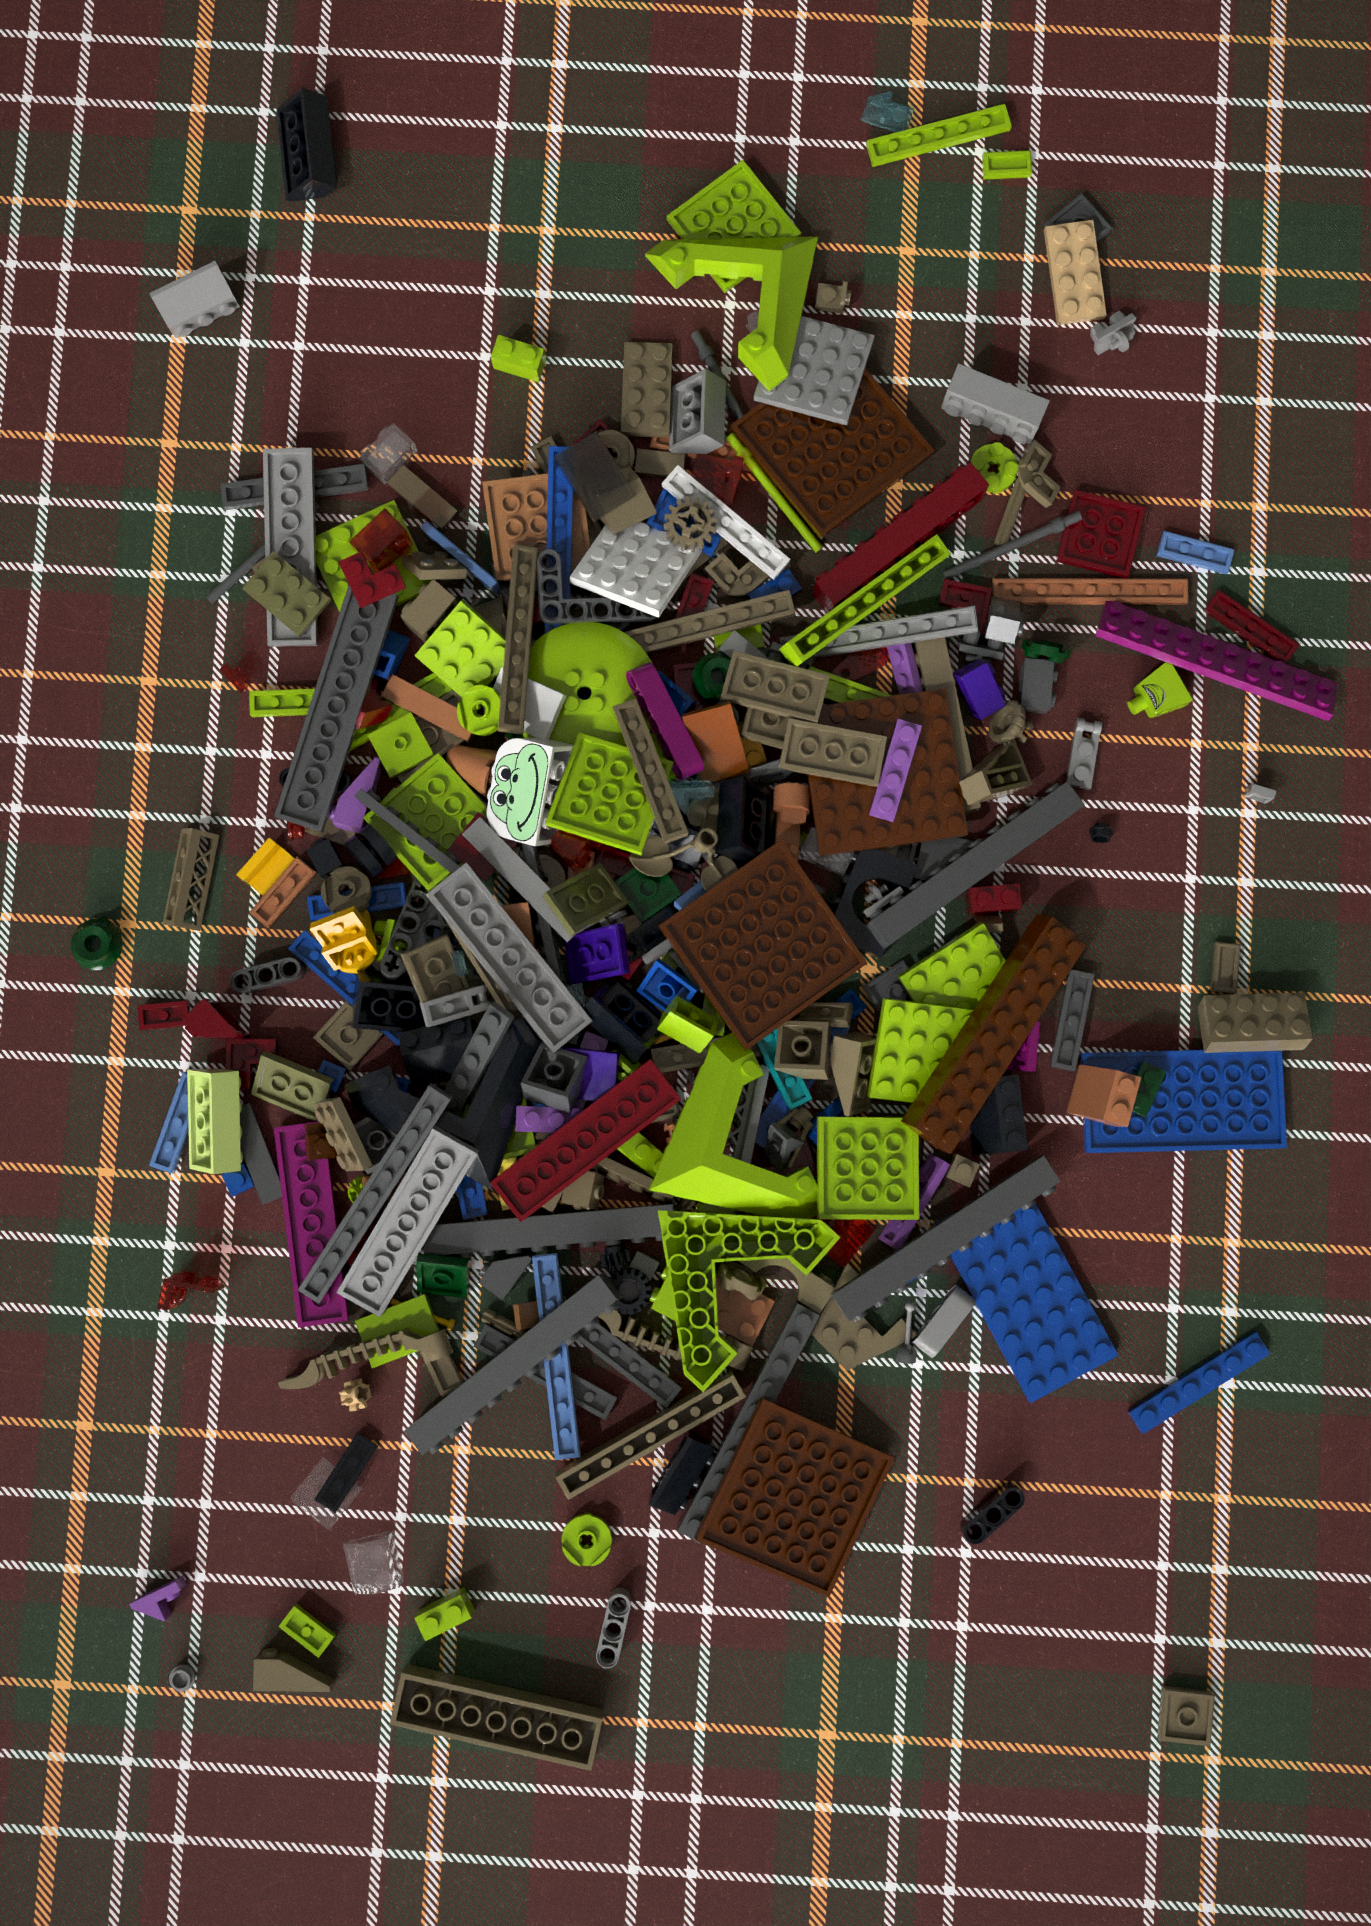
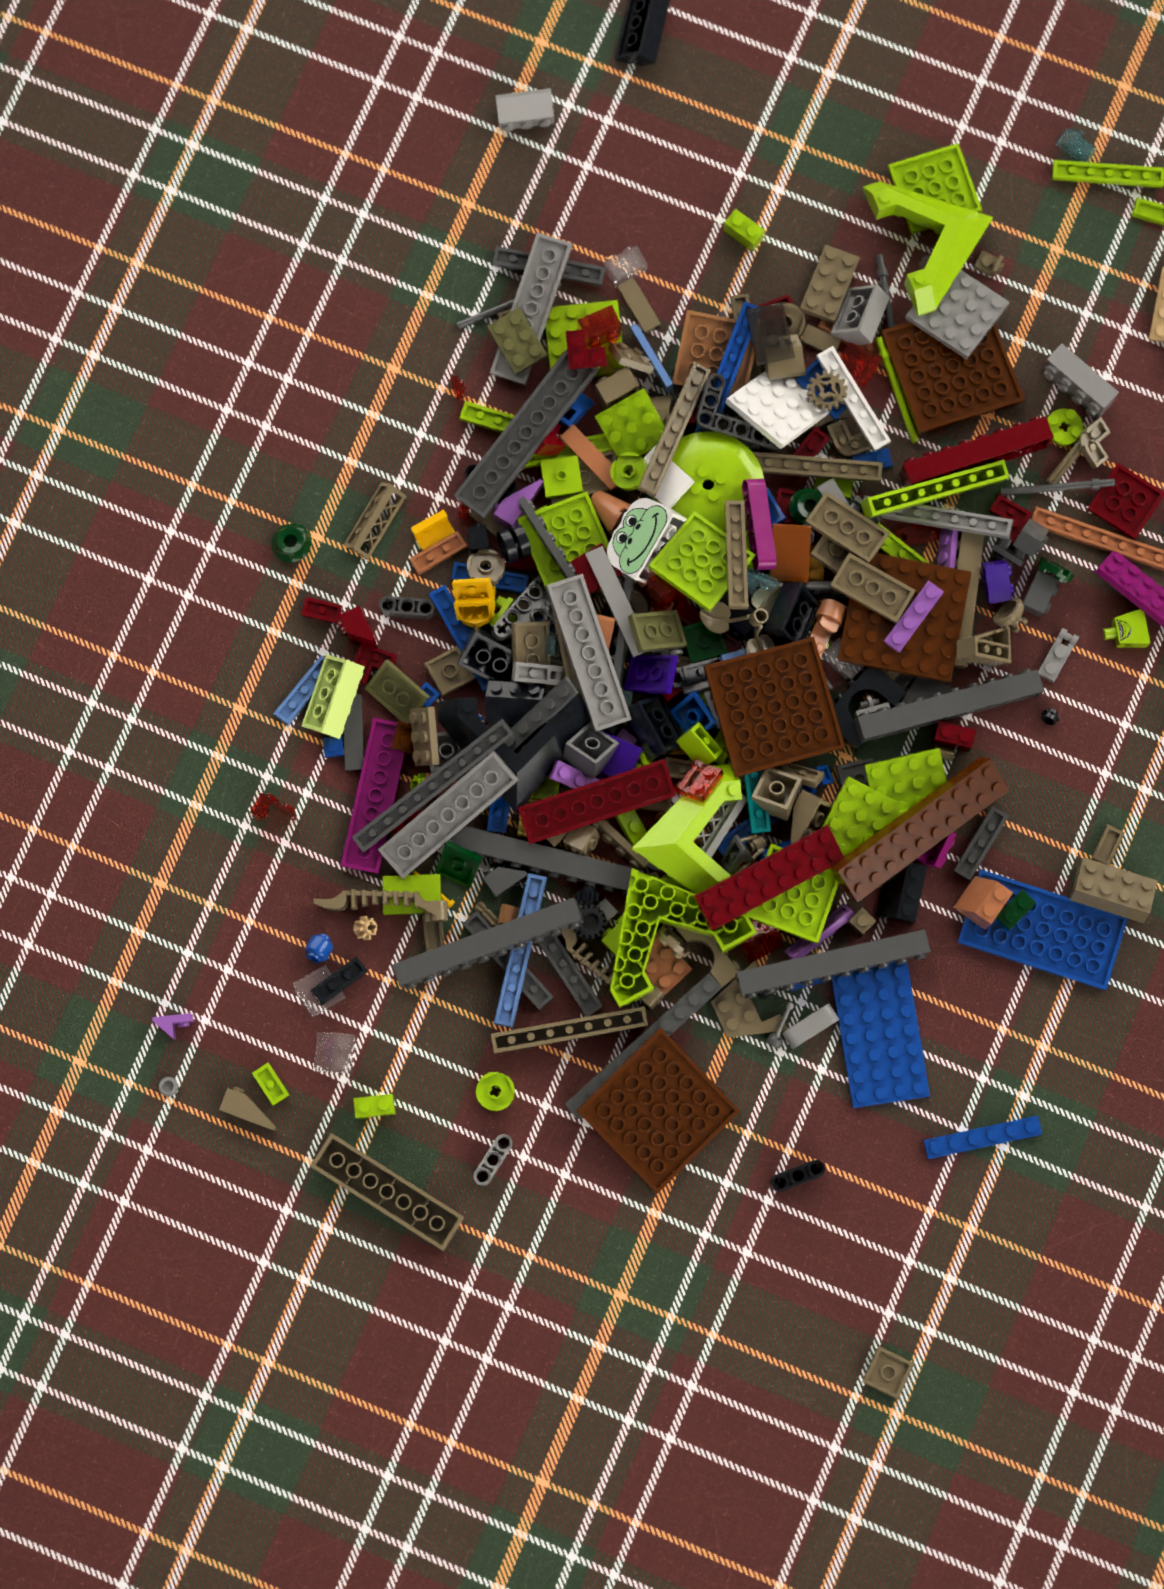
camera: 15 degrees right, 5 degrees down
(307, 1440) = (318, 948): none -> blue head
(682, 1473) = (582, 1066): black slope -> none
(709, 1072) = (702, 784): none -> clear red plate
(831, 1163) = (768, 878): none -> dark red plate

